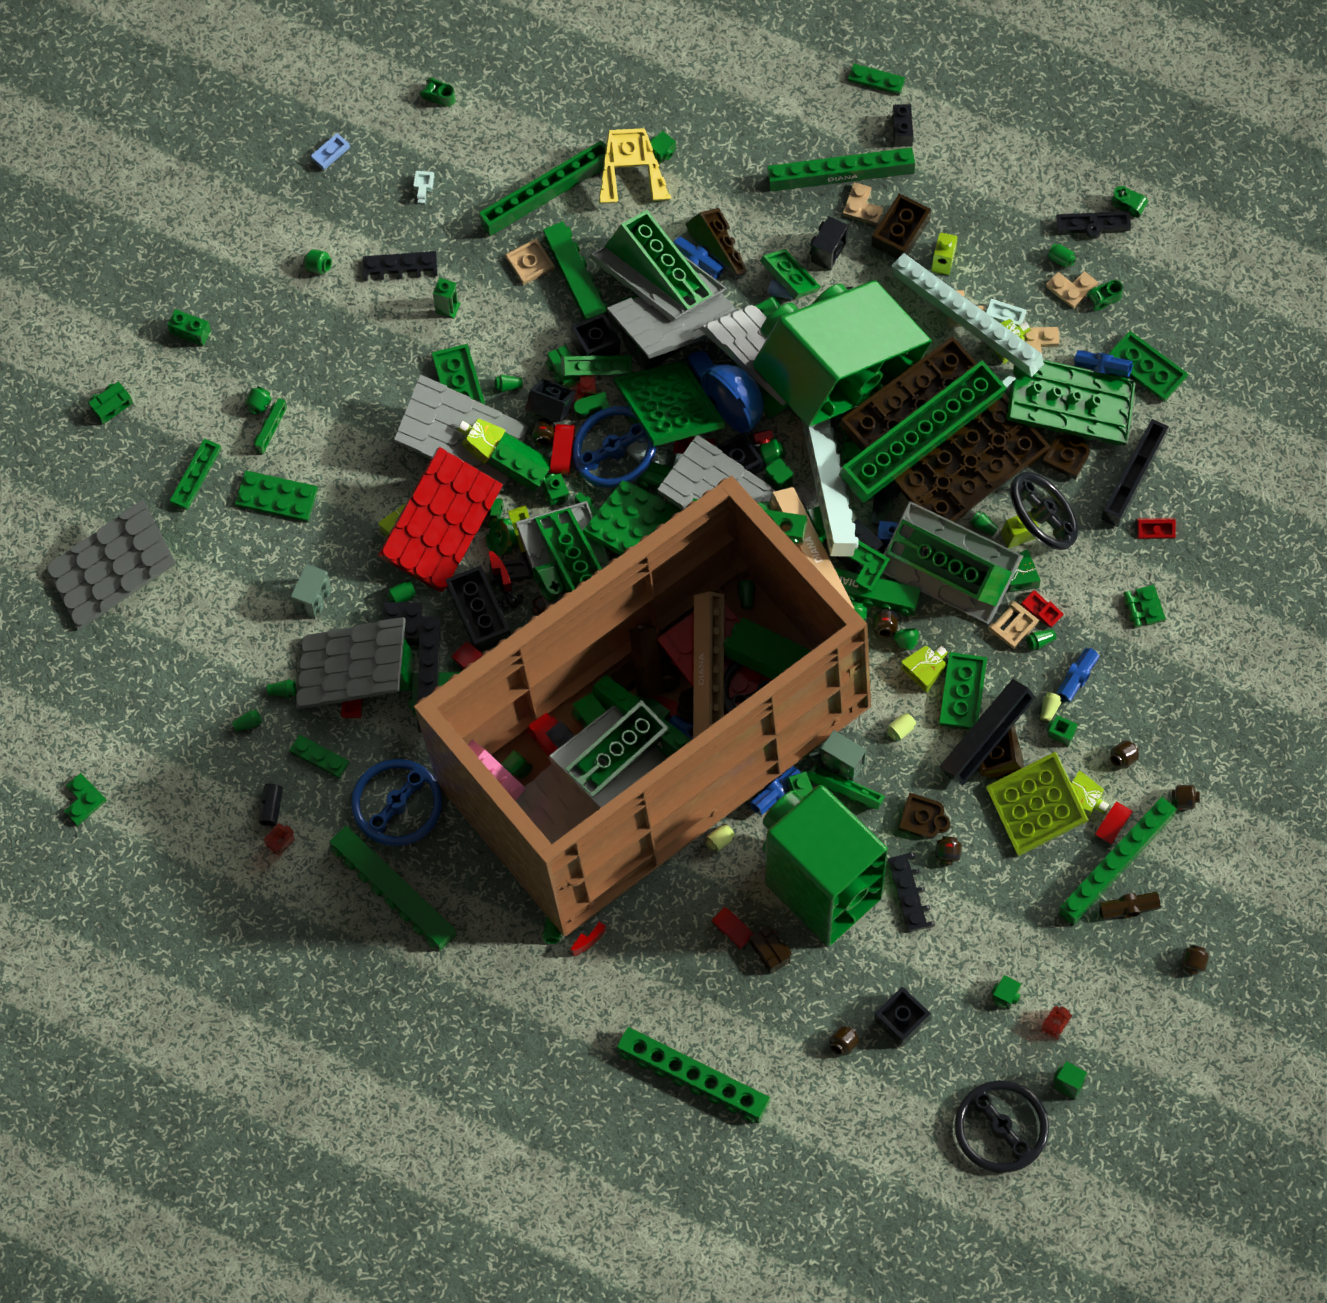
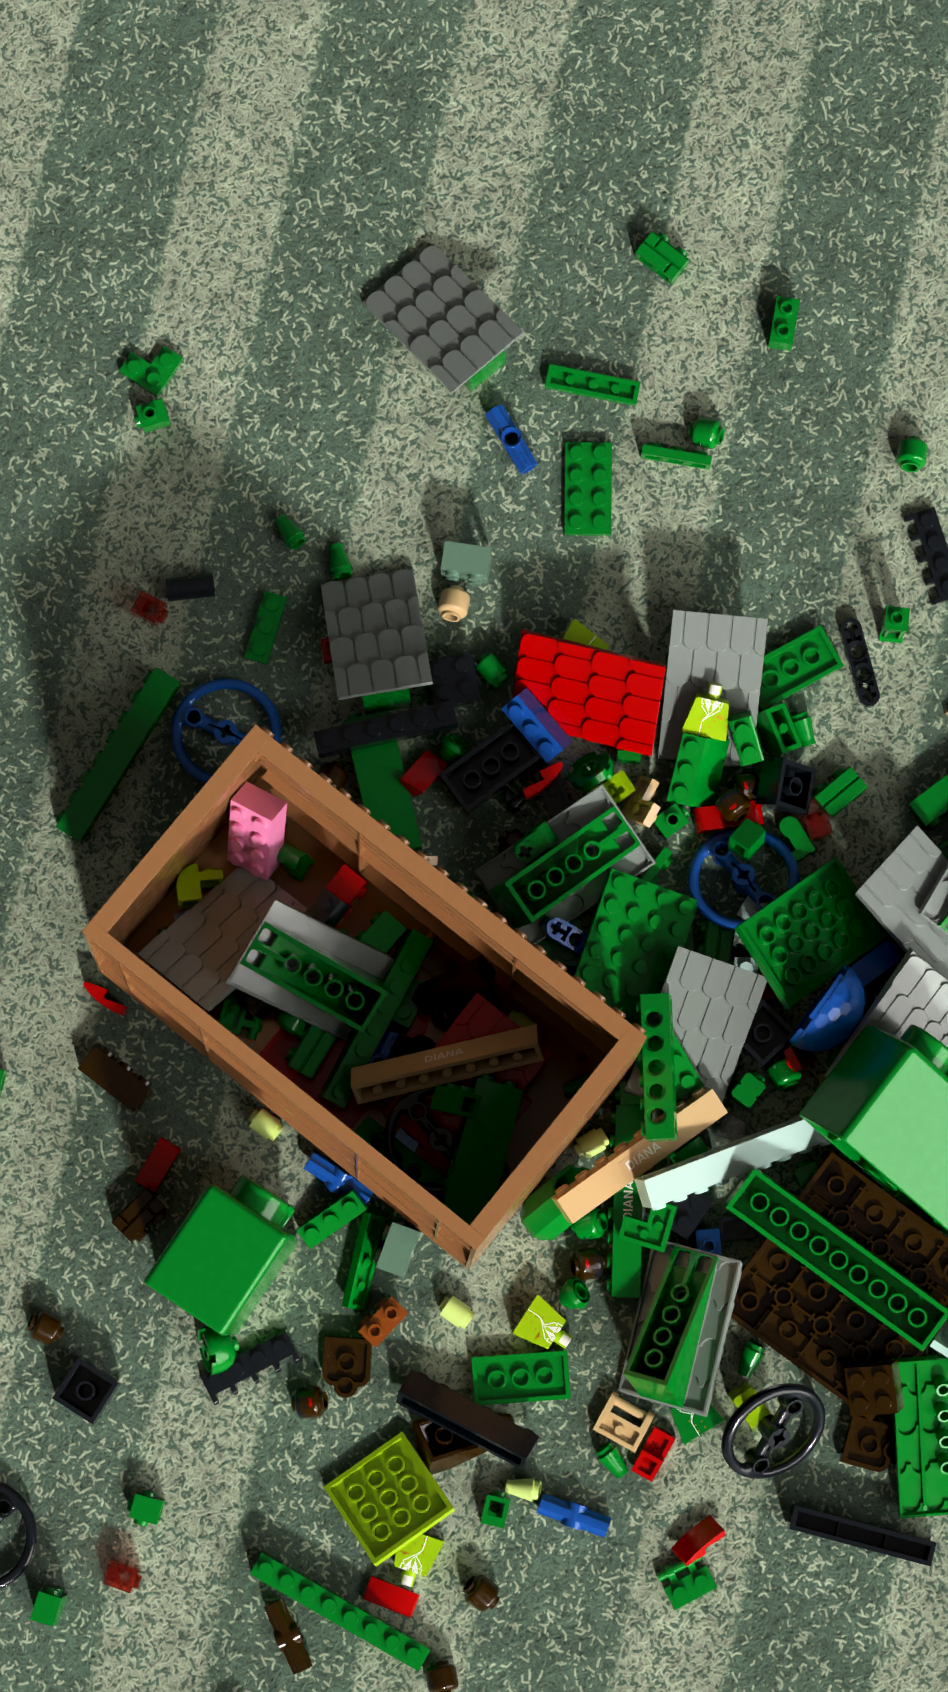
camera: 80 degrees right, 15 degrees up
(122, 803) = (157, 411): none -> green brick
(210, 543) = (503, 427): none -> blue piece
(340, 610) = (453, 603): none -> tan head
(455, 564) = (537, 725): none -> blue brick
(456, 635) = (453, 748): none -> green cone
(467, 330) = (861, 662): none -> black beam
(506, 397) = (778, 730): none -> green brick
(507, 416) = (746, 738): none -> green brick
(543, 504) = (638, 806): none -> tan plate
(555, 437) = (732, 804): none -> dark brown head
(585, 434) = (747, 839): none -> green brick
(595, 337) = (884, 821): black brick -> none
(596, 365) = (846, 831): green plate -> none
(655, 944) = (116, 1078): none -> dark brown brick
(740, 665) = (456, 1100): none -> green brick
(891, 910) = (217, 1350): none -> green cylinder
(896, 780) = (381, 1324): none -> dark orange bracket
(1026, 431) = (874, 1387): none -> dark brown brick
(1115, 589) = (697, 1539): none -> red slope
(1156, 528) = (798, 1575): red slope -> none

